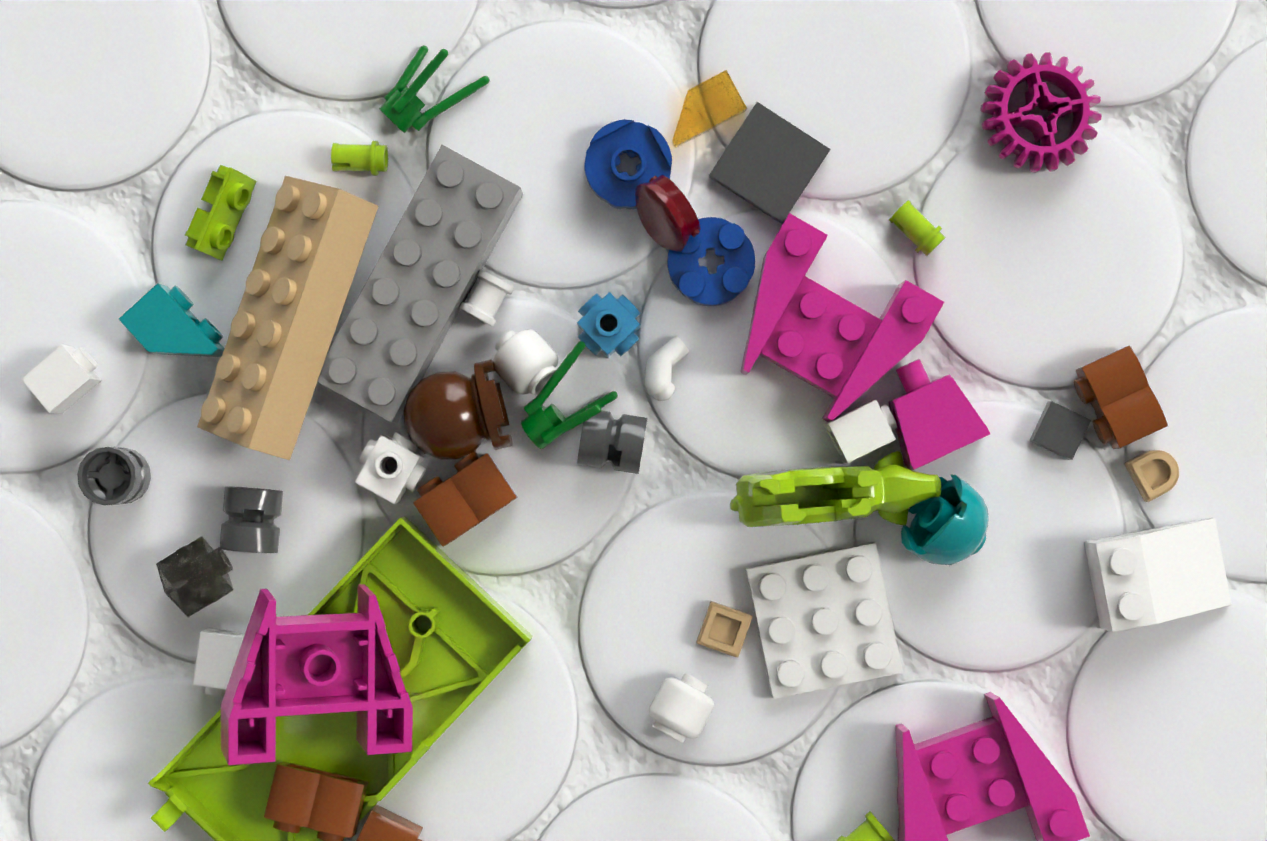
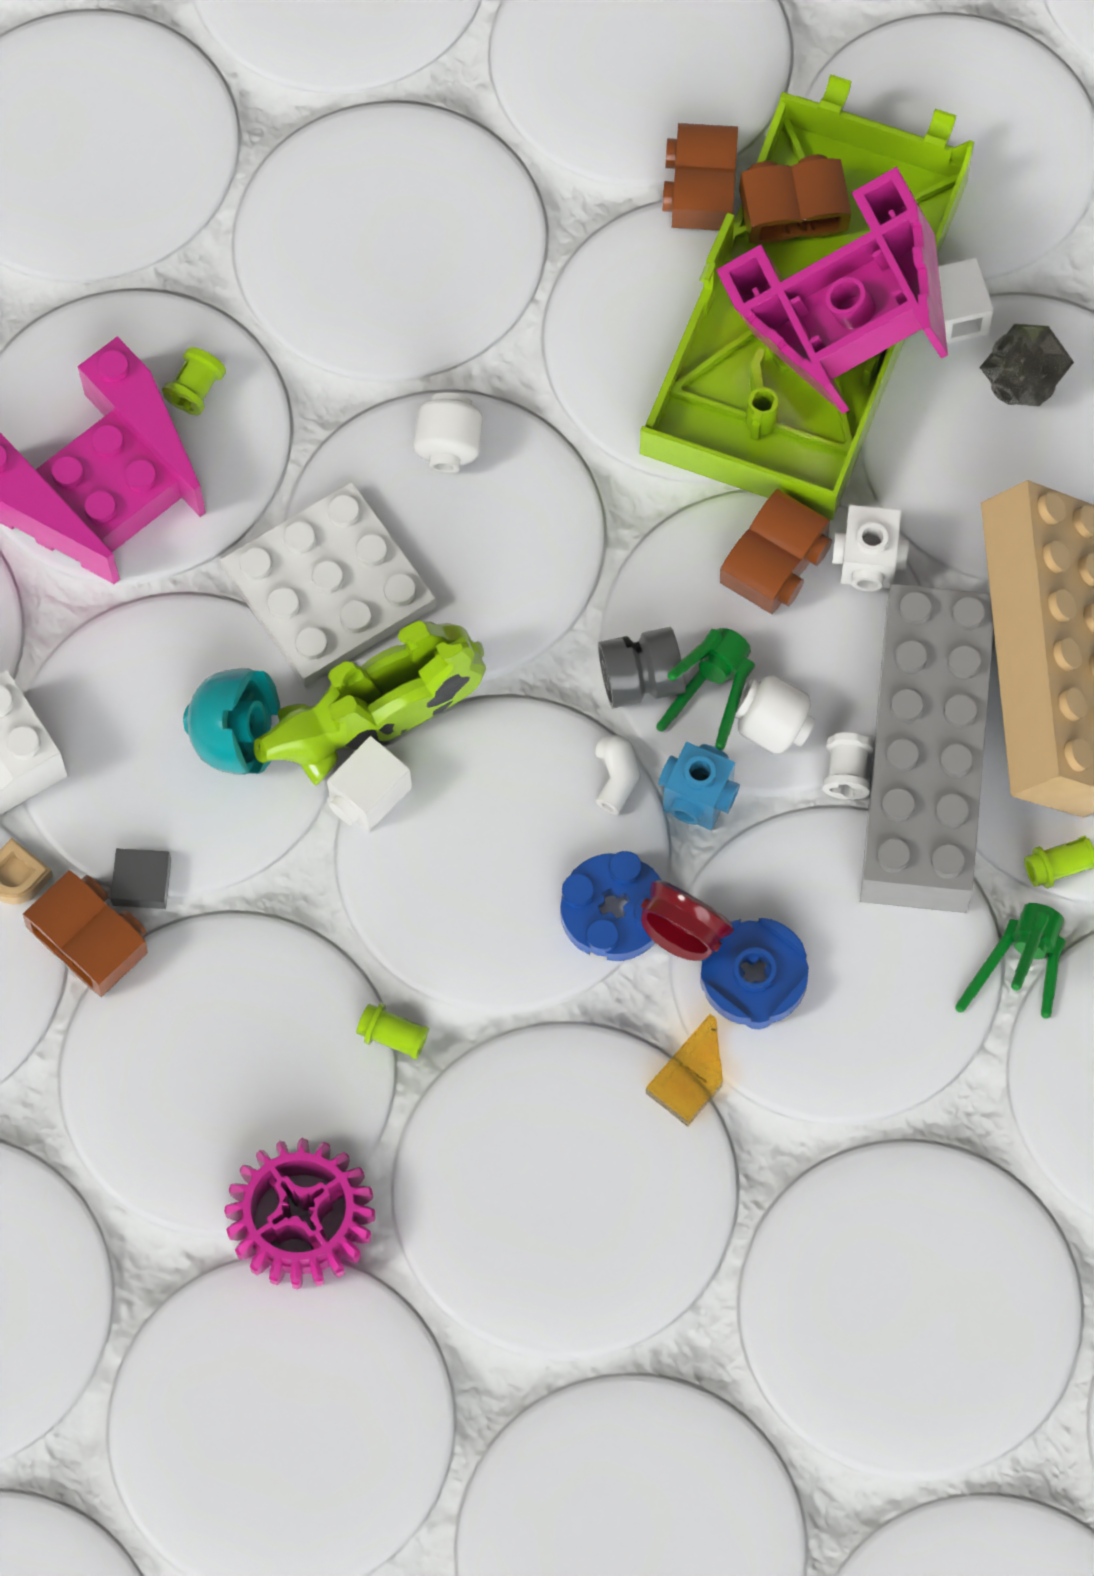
camera: 160 degrees right, 20 degrees down
(251, 535) = (993, 438): dark grey wheel -> none
(454, 413) = (825, 623): reddish brown tile -> none
(724, 629) = (434, 534): tan tile -> none
(769, 162) = (593, 1040): dark grey tile -> none
(822, 333) = (455, 874): dark pink wedge -> none
(932, 417) = (292, 830): dark pink torso -> none

